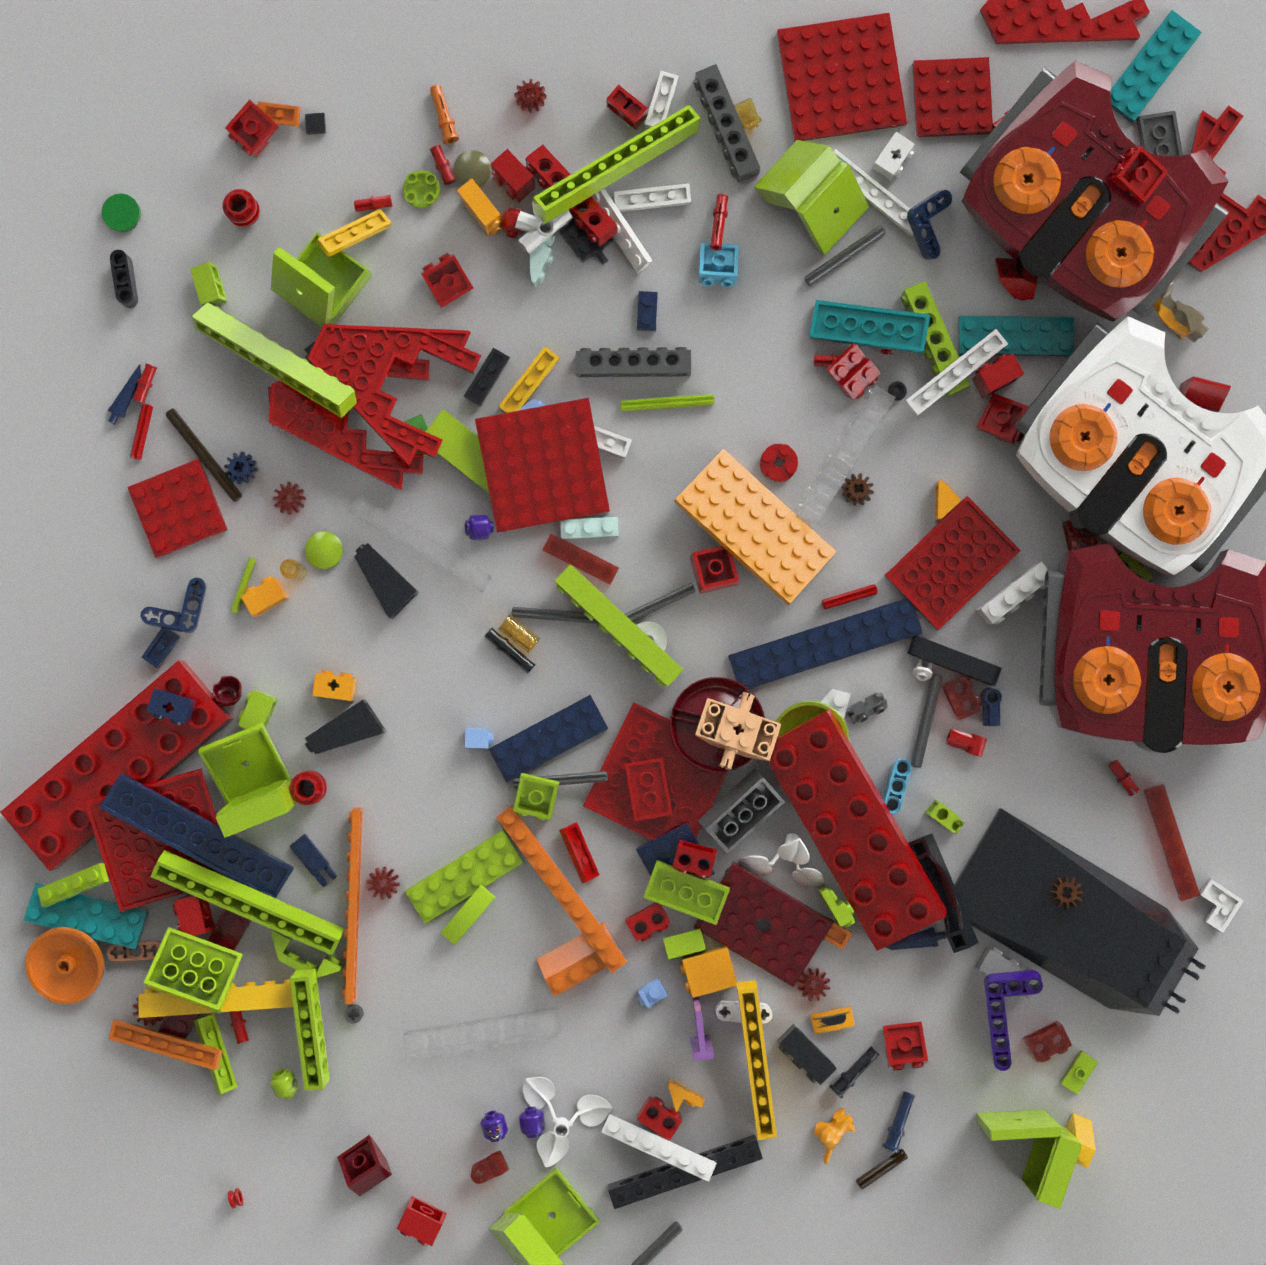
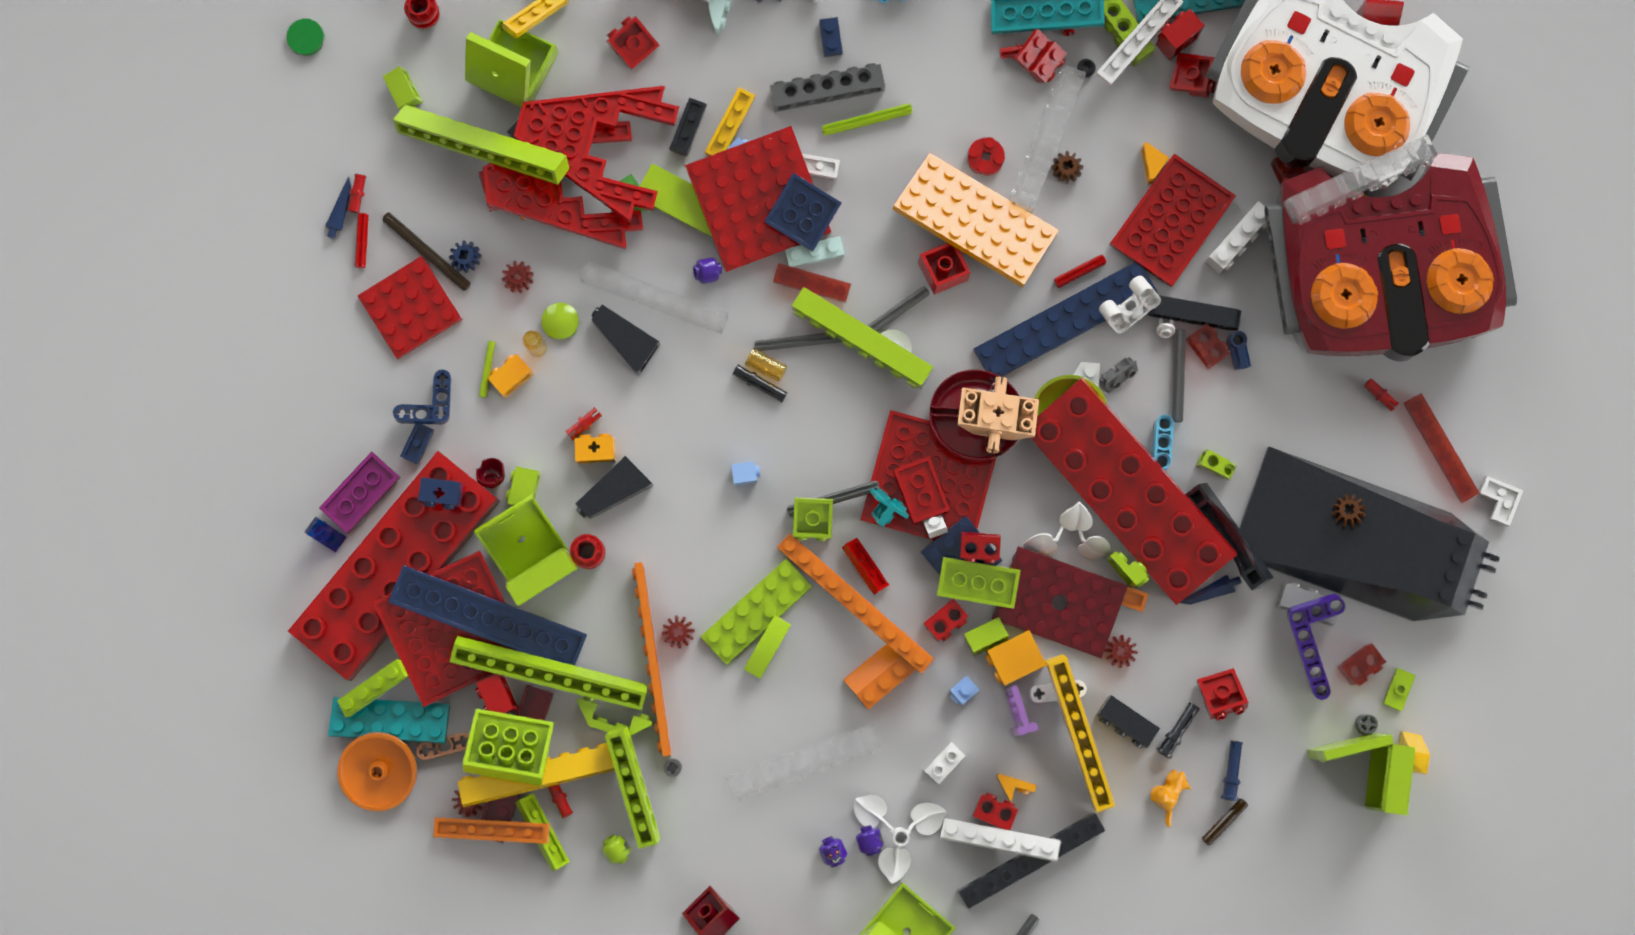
camera: 10 degrees left, 5 degrees down
(54, 721) = (325, 534): none -> clear blue slope
(96, 685) = (359, 492): none -> magenta plate
(118, 272) = (314, 91): black beam -> none
(312, 858) = (602, 621): dark blue hinge -> none
(328, 658) = (583, 423): none -> red pin
(492, 1166) = (839, 891): clear red piece -> none
(548, 738) = (813, 461): dark blue plate -> none
(583, 488) = (802, 212): none -> dark blue plate
(609, 802) = (884, 510): none -> teal bracket
(619, 1061) = (944, 763): none -> white brick
(655, 828) = (935, 526): none -> white plate
(741, 811) = (1016, 494): dark grey brick -> none
(832, 1020) = (1146, 683): light orange slope -> none
(880, 652) = (1133, 309): none -> white beam
(971, 743) = (1227, 388): red piece -> none
(1043, 1103) = (1371, 724): none -> dark grey wheel
(1148, 565) = (1360, 179): none -> clear brick

